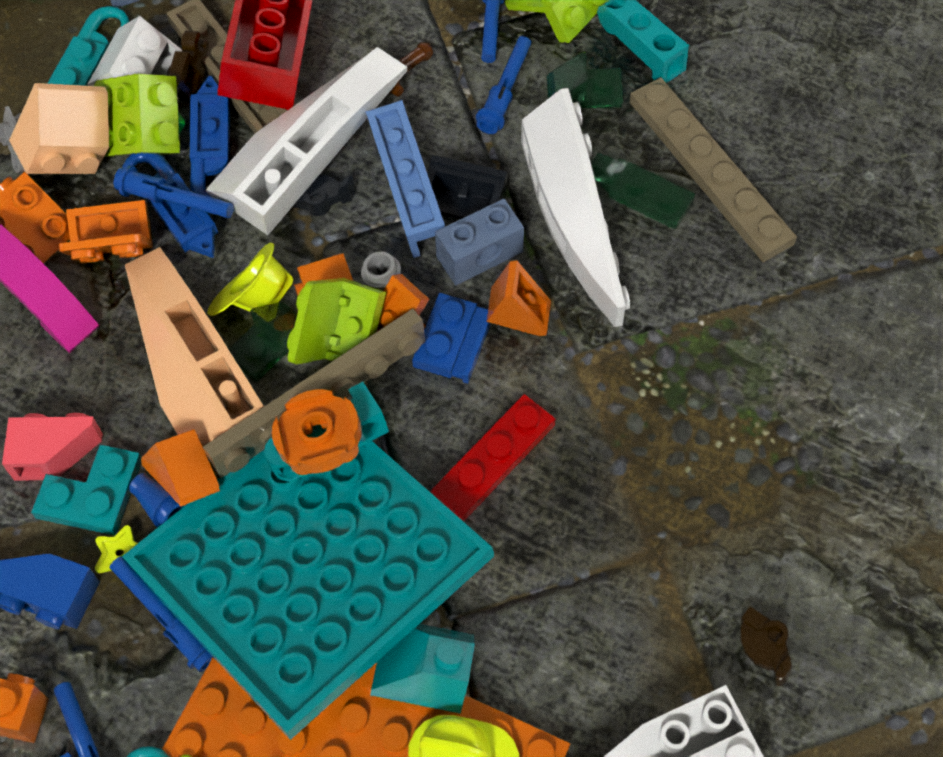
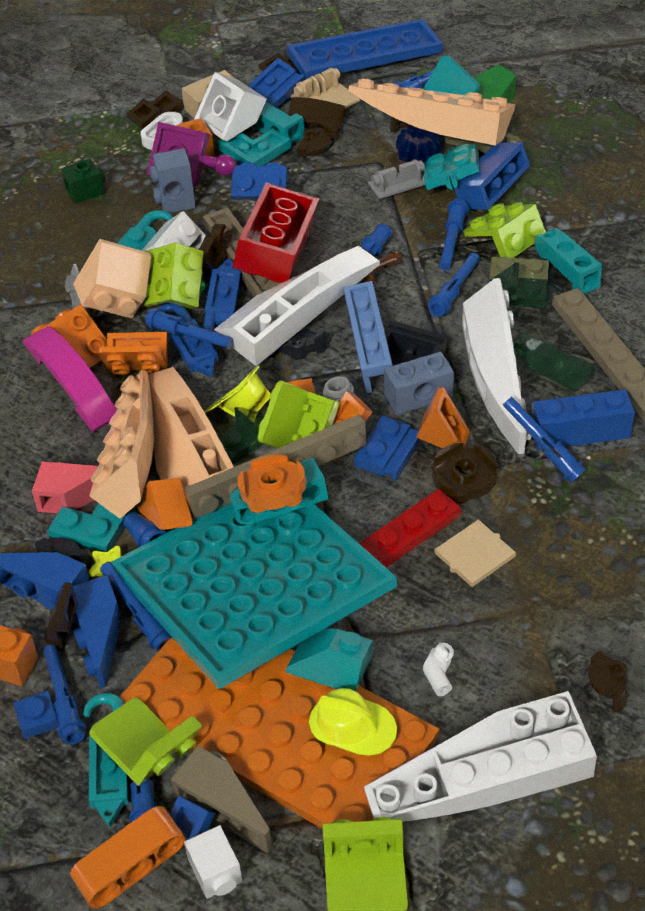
camera: 10 degrees right, 15 degrees down
(60, 540) = (66, 547): none -> black piece
(70, 649) = (62, 616): none -> dark brown slope
(119, 384) = (127, 449): none -> light nougat wedge
(119, 644) = (98, 625): none -> blue slope
(393, 34) = (374, 243): none -> blue axle
(548, 386) = (464, 486): none -> dark brown plate
(553, 653) = (436, 667): none -> white arm
(580, 479) = (475, 553): none -> tan piece
(599, 53) = (527, 267): none -> olive plate
(677, 339) = (567, 463): none -> blue pin
(690, 275) = (585, 418): none -> blue brick

